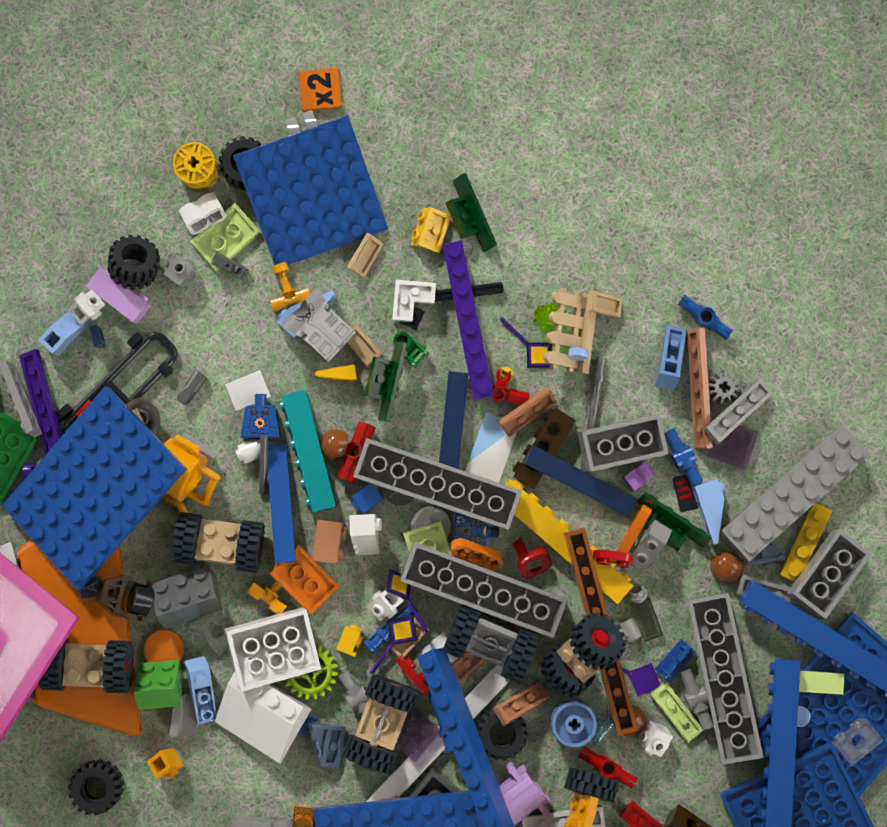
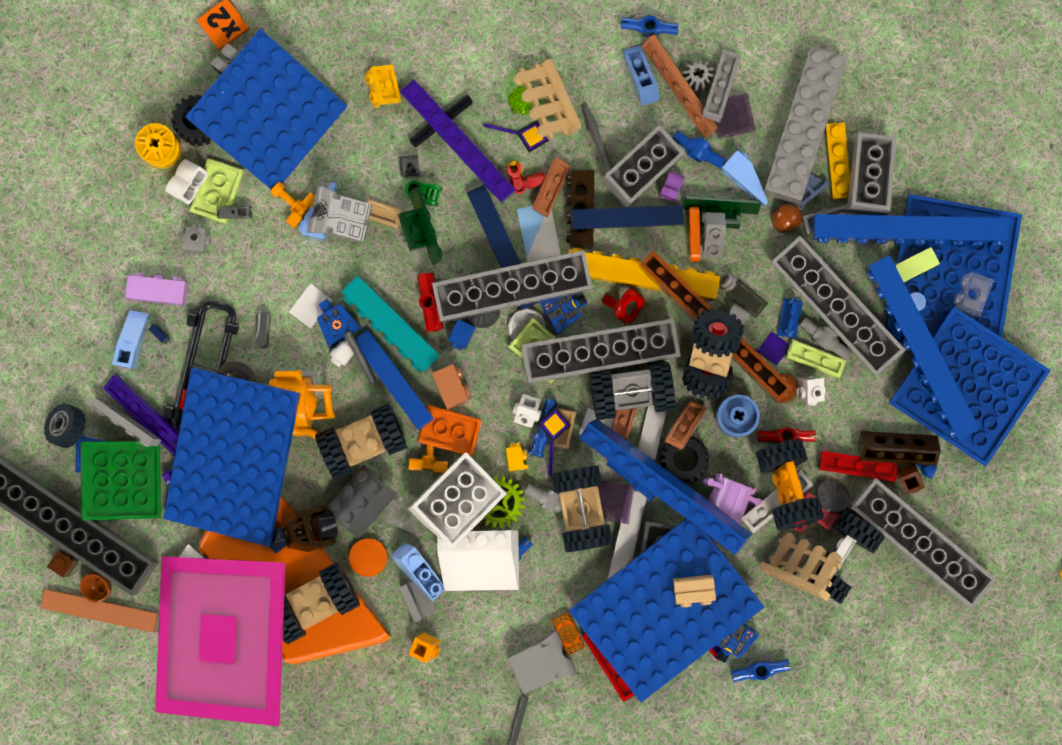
camera: 35 degrees left, 0 degrees up
(81, 795) = (379, 718): black tyre -> none
(86, 307) = (136, 313): white brick -> none
(137, 249) = (149, 243): black tyre -> none
(158, 684) = (381, 586): bright green brick -> none
(327, 743) = (547, 552): sand blue wing -> none
(334, 444) = (408, 306): dark orange hair -> none
(343, 373) = (379, 246): yellow slope -> none
(365, 255) = (341, 138): tan tile -> none
(365, 533) = (477, 363): white wedge -> none
(402, 590) = (534, 391): piece -> none
(406, 294) = (395, 149): white panel -> none
(408, 667) = (576, 450): red plate -> none
(464, 549) = (565, 326): orange beam -> none
(469, 215) = (407, 55): dark green bracket -> none
(578, 354) = (564, 114): light blue tile -> none
(603, 730) = (765, 409): clear light blue pin -> none
(604, 304) = (561, 62): tan tile -> none
(605, 557) = (692, 261): red plate -> none
(684, 493) = (717, 179): black sticker -> none

